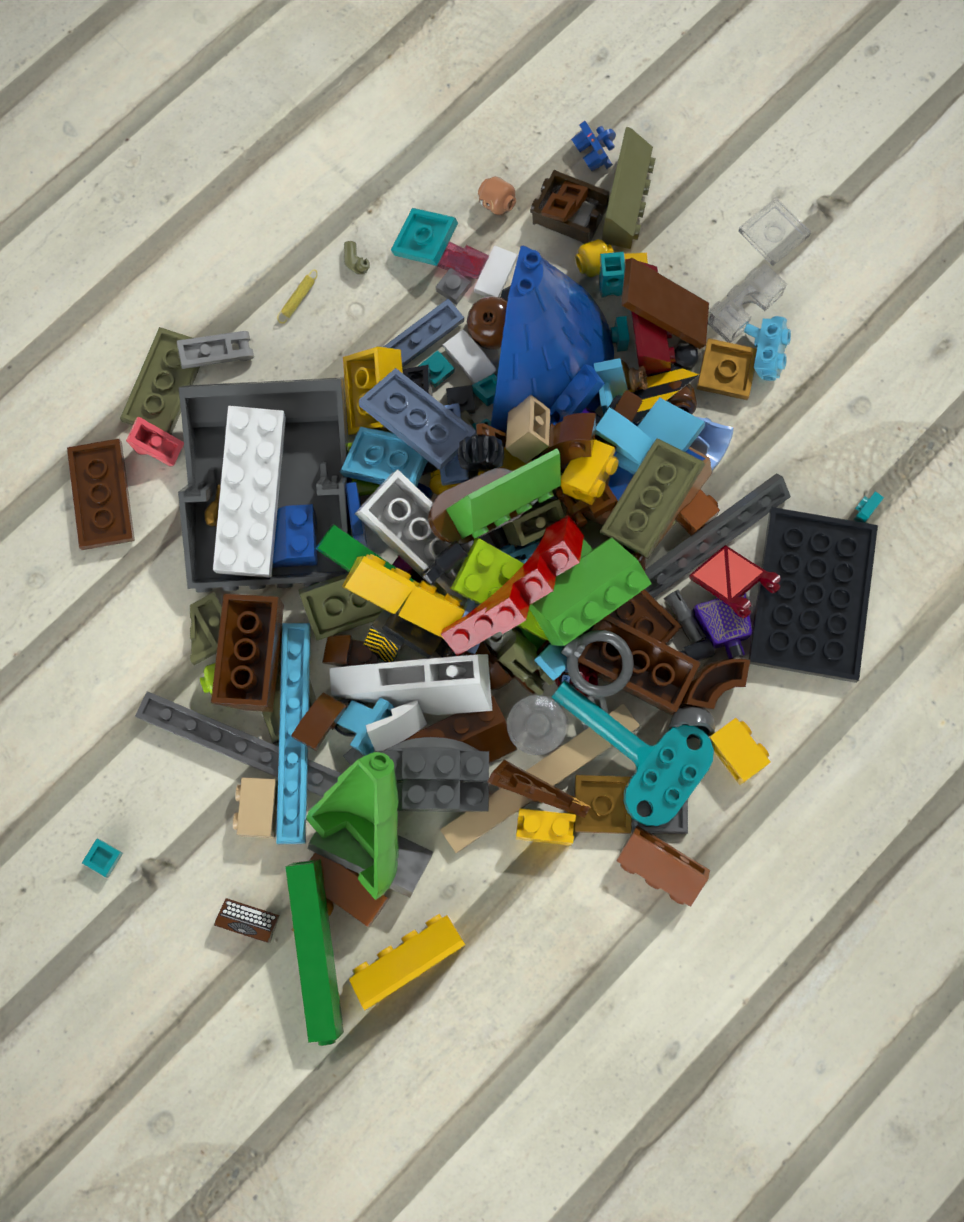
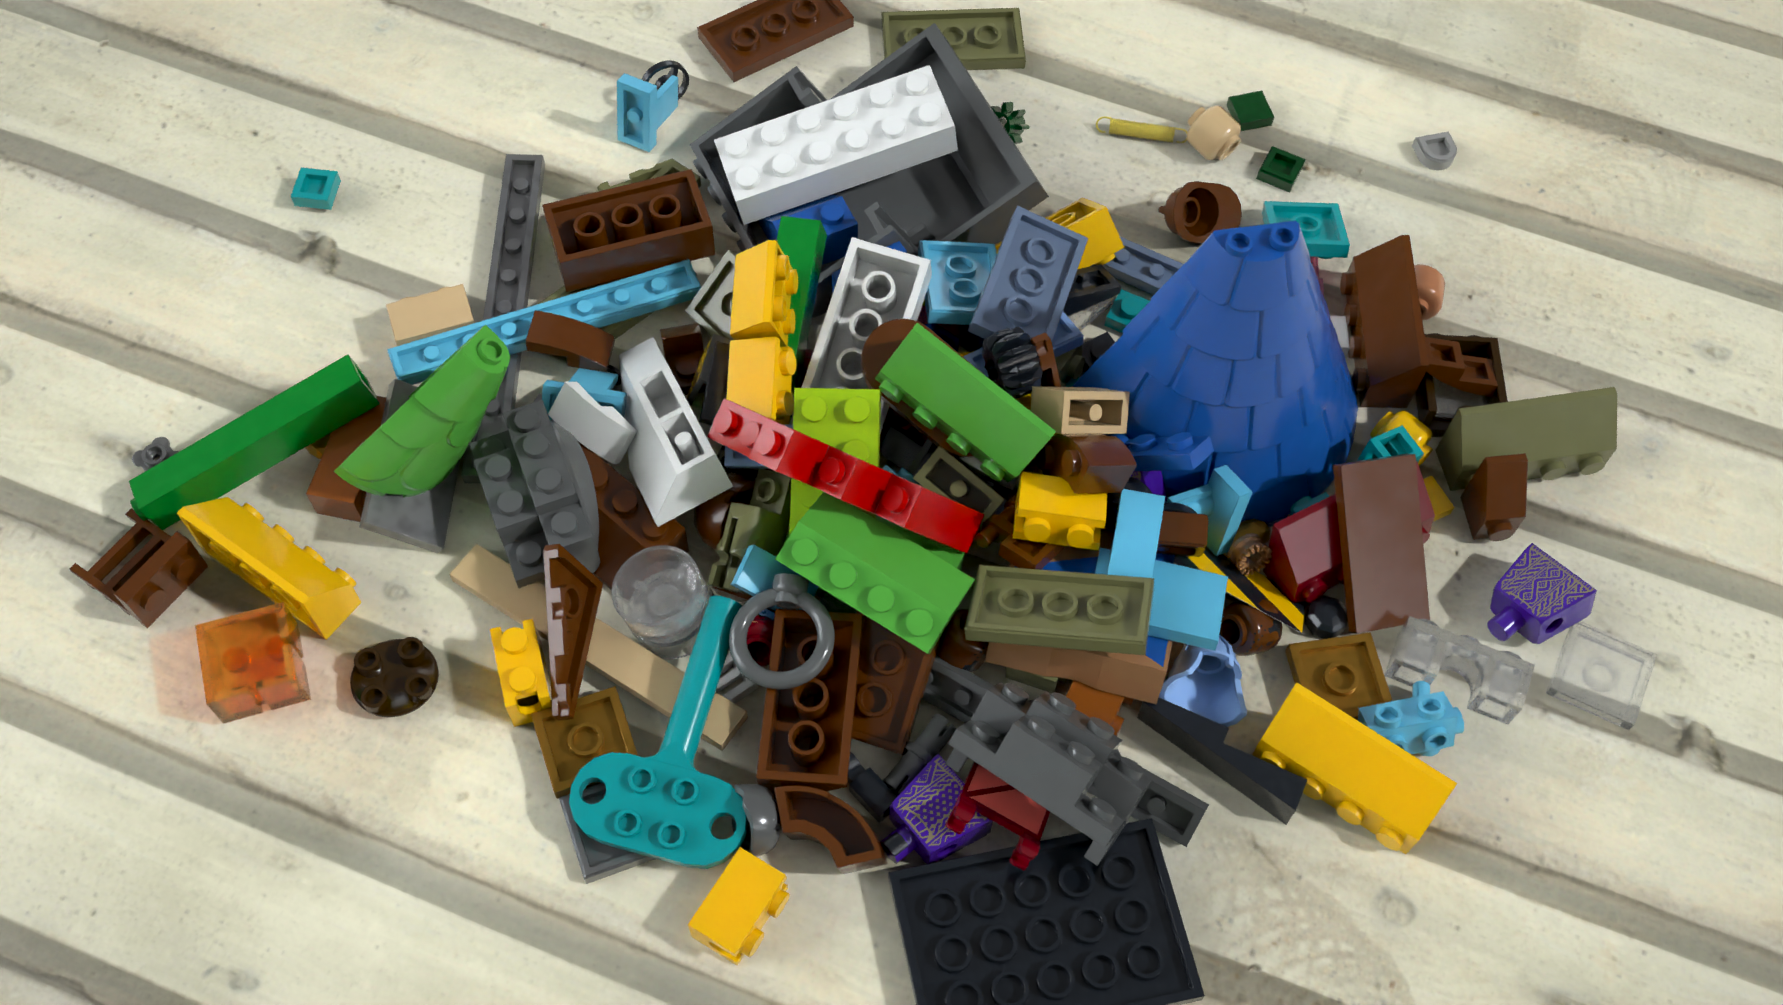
camera: 65 degrees right, 15 degrees down
(142, 608) = (646, 106): none -> medium azure piece
(151, 440) = (863, 41): coral slope -> none
(214, 349) = (1018, 66): light grey plate -> none
(247, 920) = (279, 361): slope -> none
(258, 373) = (1015, 121): none -> dark green gear
(285, 1030) = (159, 447): none -> flat silver plate
(312, 223) = (1250, 110): none -> dark green tile
(325, 254) = (1213, 132): none -> tan head
(352, 261) = (1225, 168): olive arm -> none
(366, 227) = (1280, 169): none -> dark green tile
(384, 292) = (1200, 209): none -> reddish brown piece
(392, 1048) = (151, 576): none -> reddish brown plate
(393, 129) = (1435, 150): none -> light grey tile
(444, 562) = (830, 367): black bar -> none
(475, 992) = (252, 662): none -> clear orange piece
(513, 908) = (394, 677): none -> dark brown dish
(514, 223) = (1385, 325): none -> reddish brown slope
(586, 138) = (1575, 374): blue hips -> none
(657, 228) = (1497, 497): none -> reddish brown slope
(663, 866) = (517, 855): dark orange brick -> none
(722, 240) = (1538, 598): none -> dark purple torso
(737, 541) = (1054, 759): none -> dark grey piece
(739, 455) = (1203, 740): none -> black slope
(786, 390) = (1354, 769): none -> yellow slope
(867, 507) = (1226, 970): teal plate -> none

